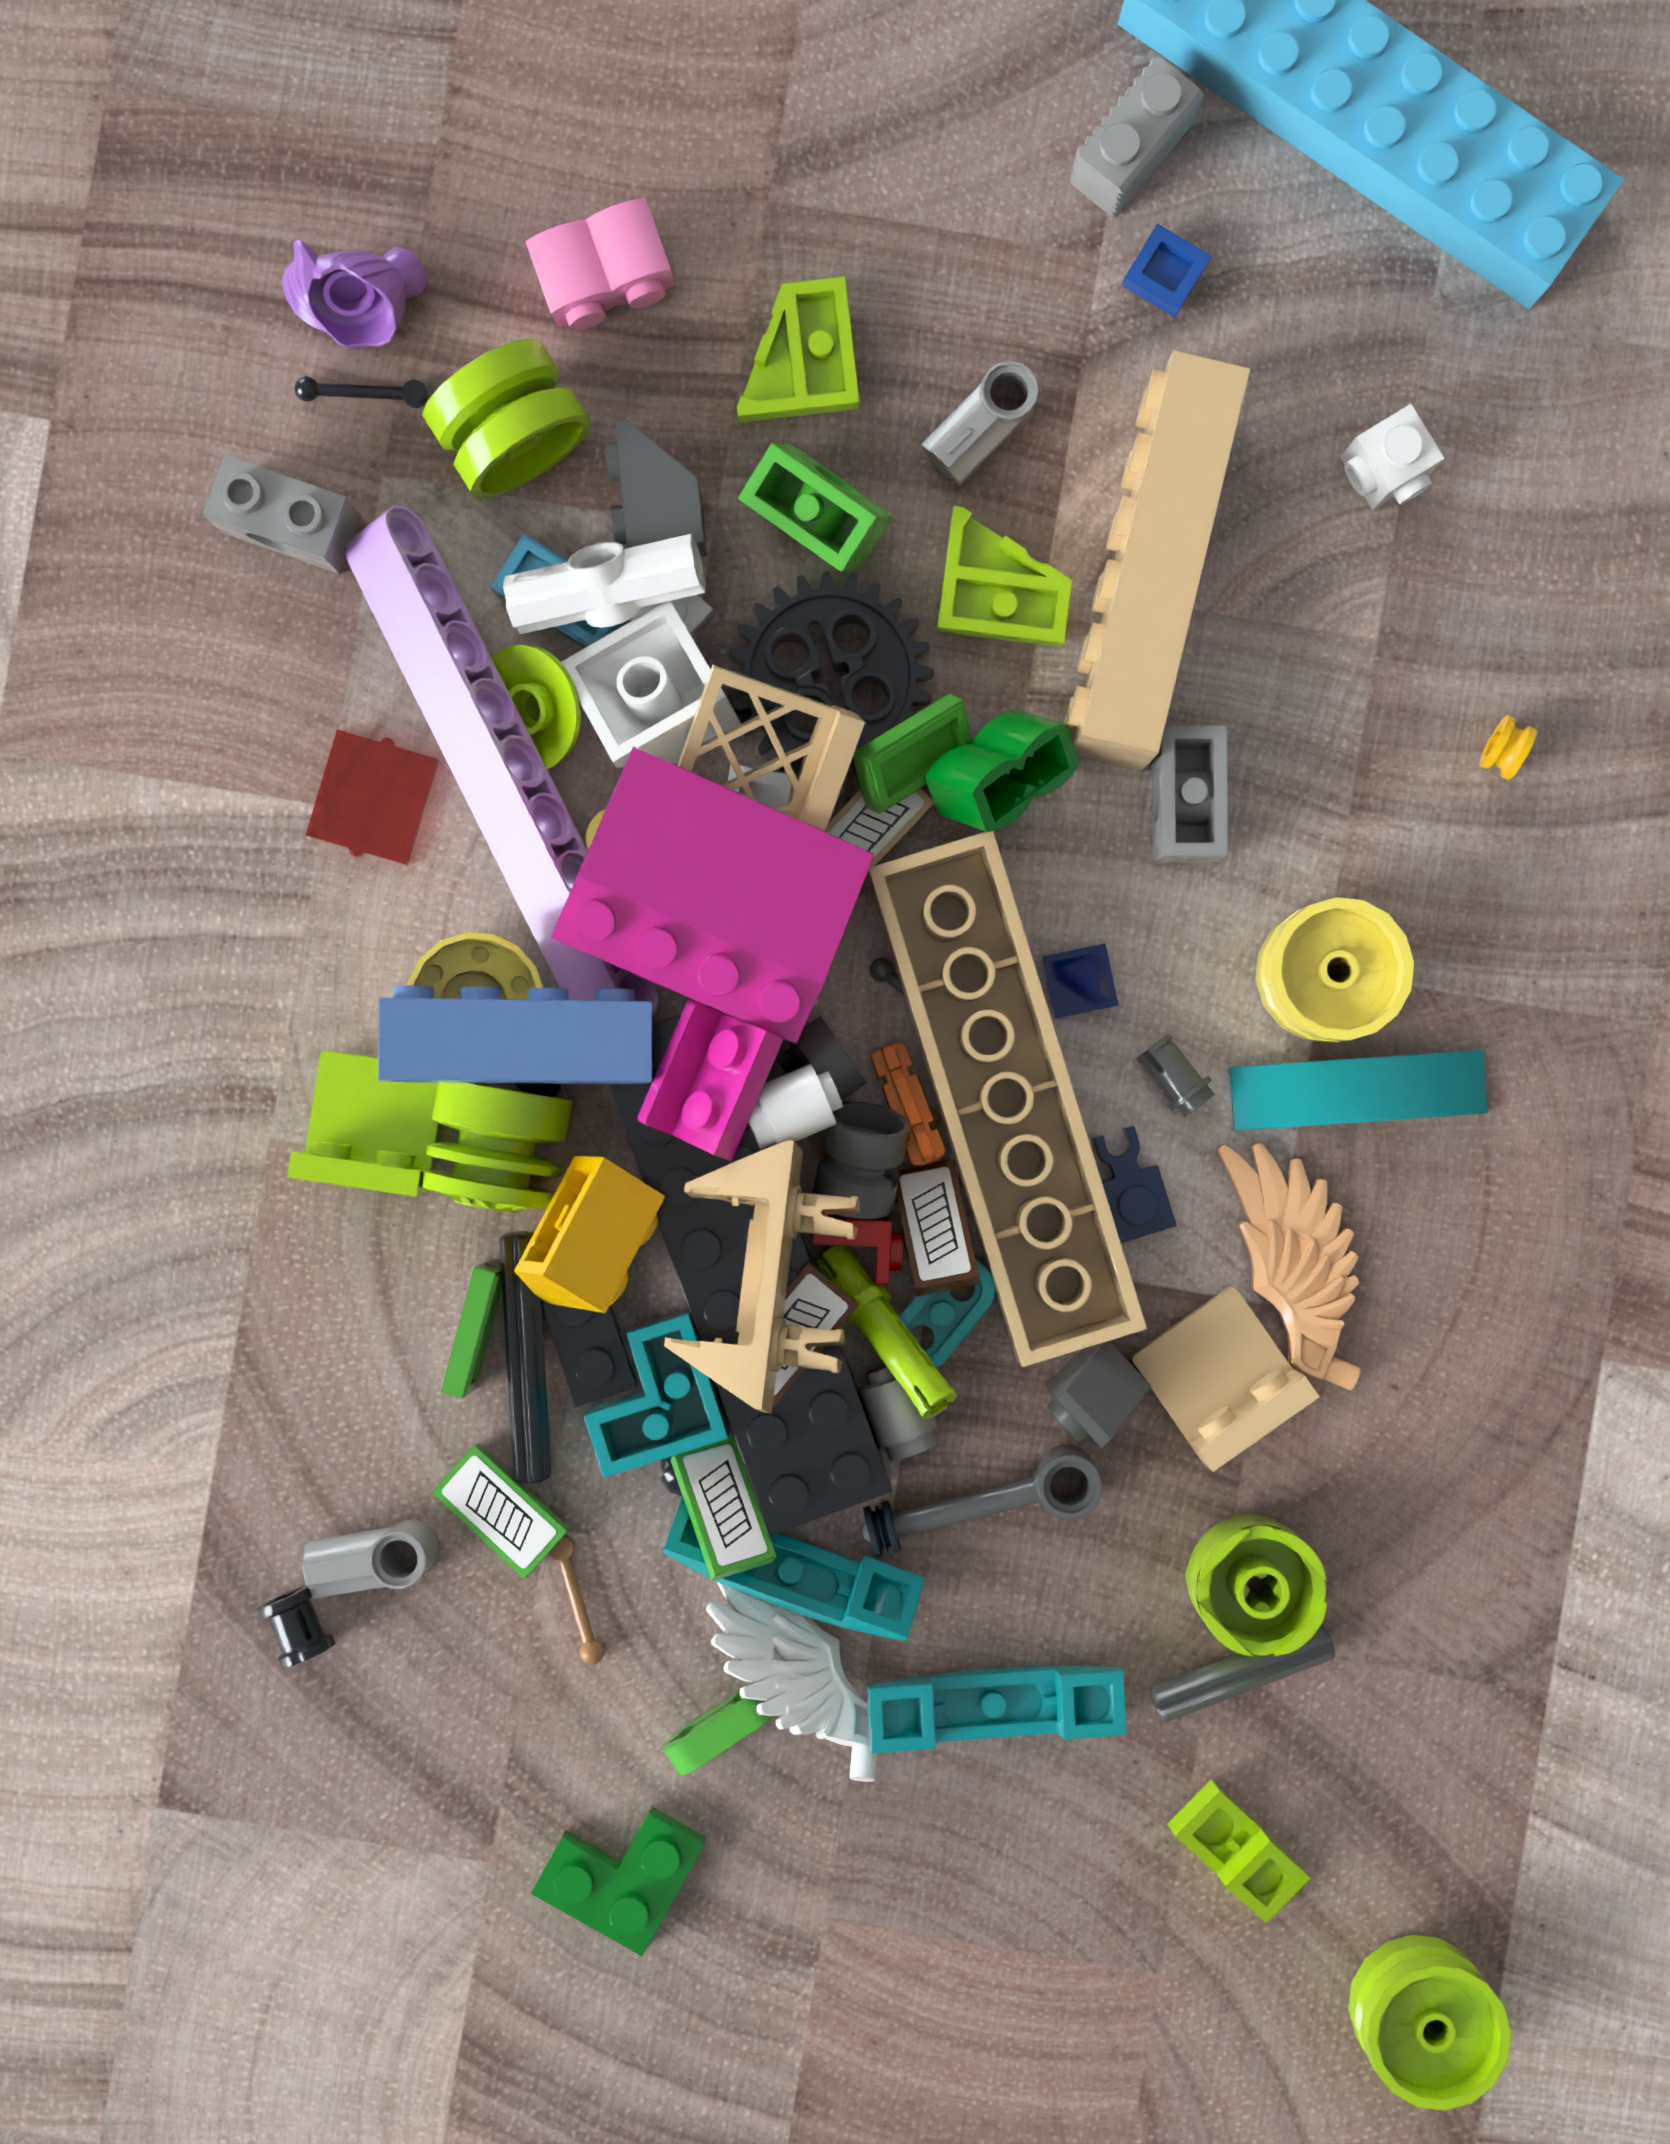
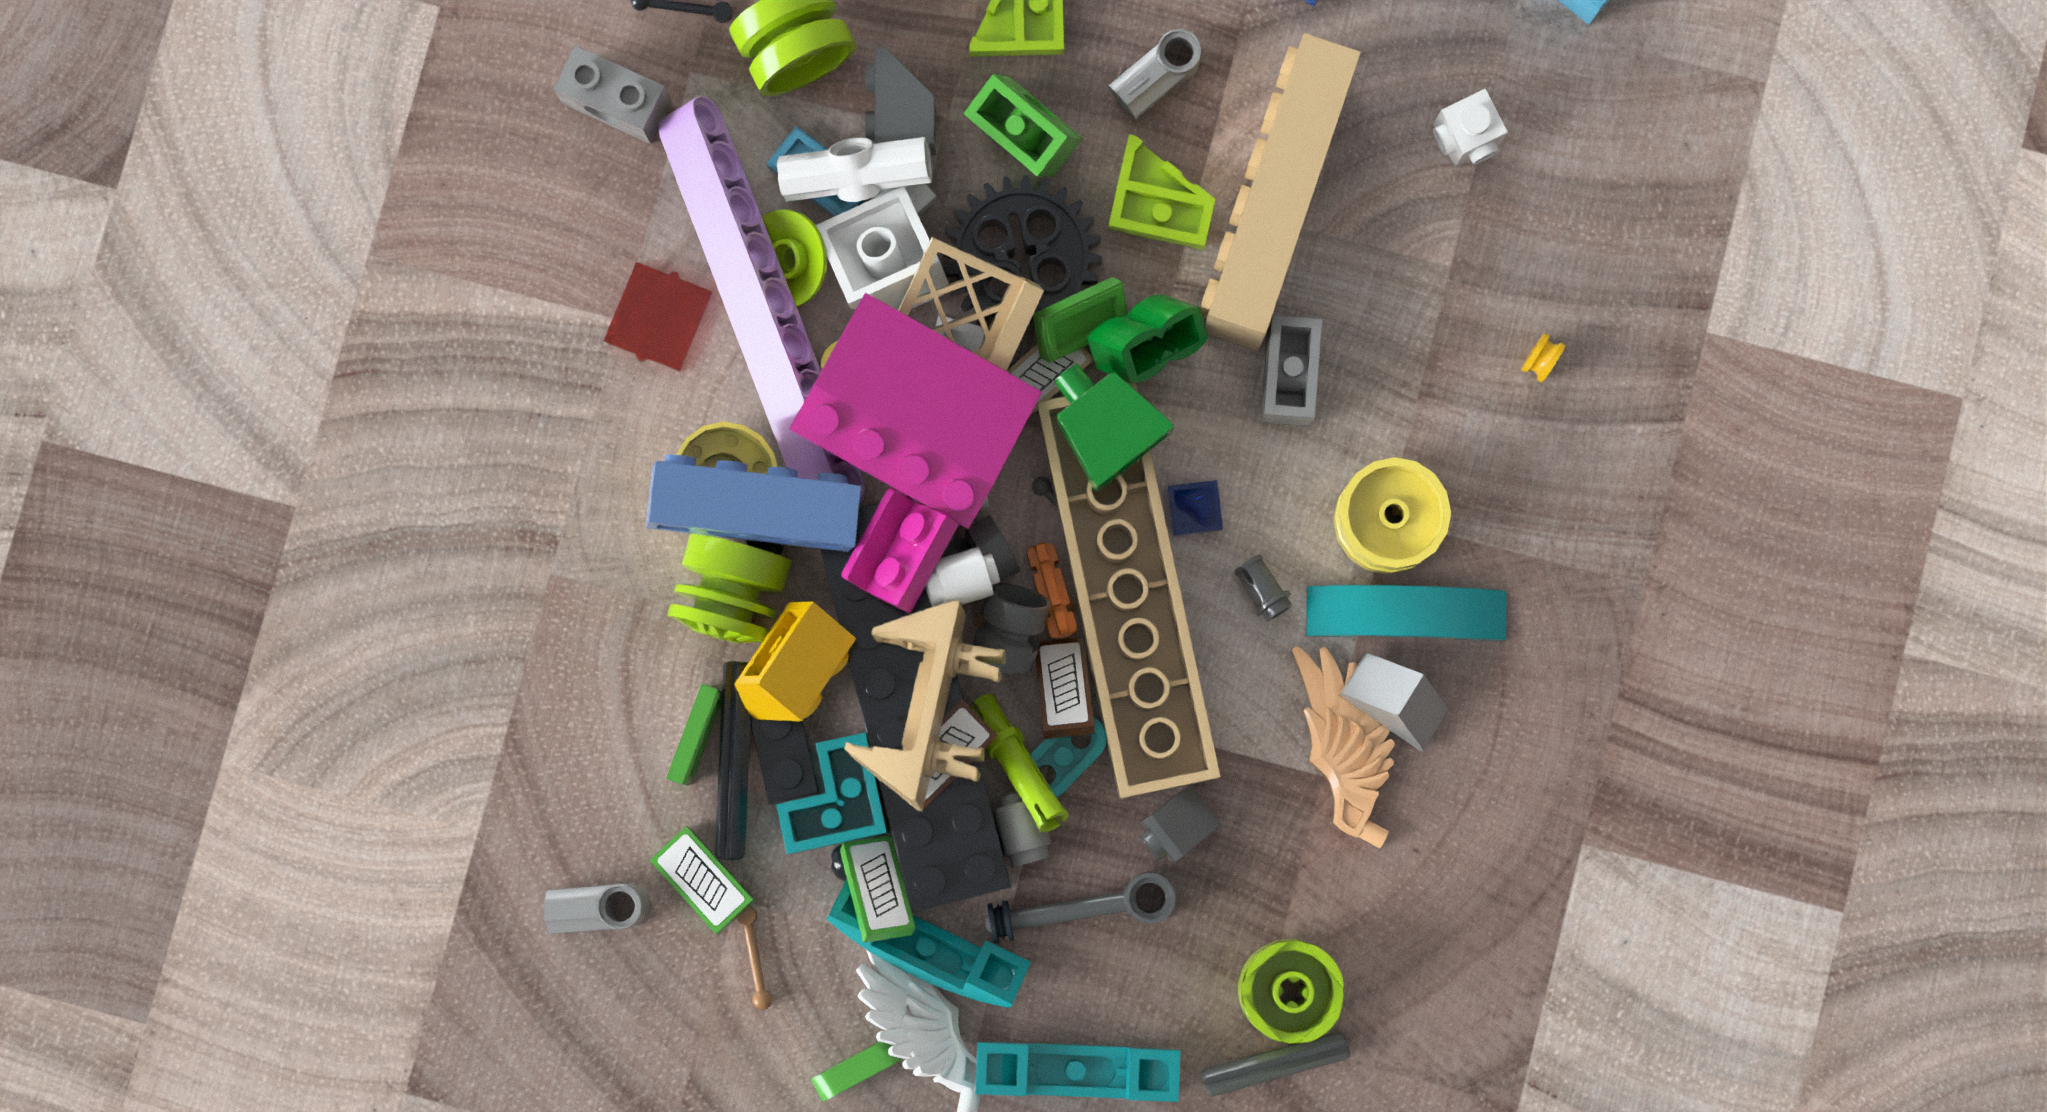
camera: 10 degrees right, 5 degrees down
(296, 1626) = (532, 955): black bush -> none
(367, 1129) = (630, 568): lime bracket -> none
(872, 1234) = (1010, 687): red bracket -> none
(963, 889) = (1107, 424): none -> green torso
(1134, 1194) = (1222, 679): dark blue plate -> none
(1222, 1378) = (1277, 825): tan bracket -> none
(1355, 1201) = (1396, 699): none -> light grey slope

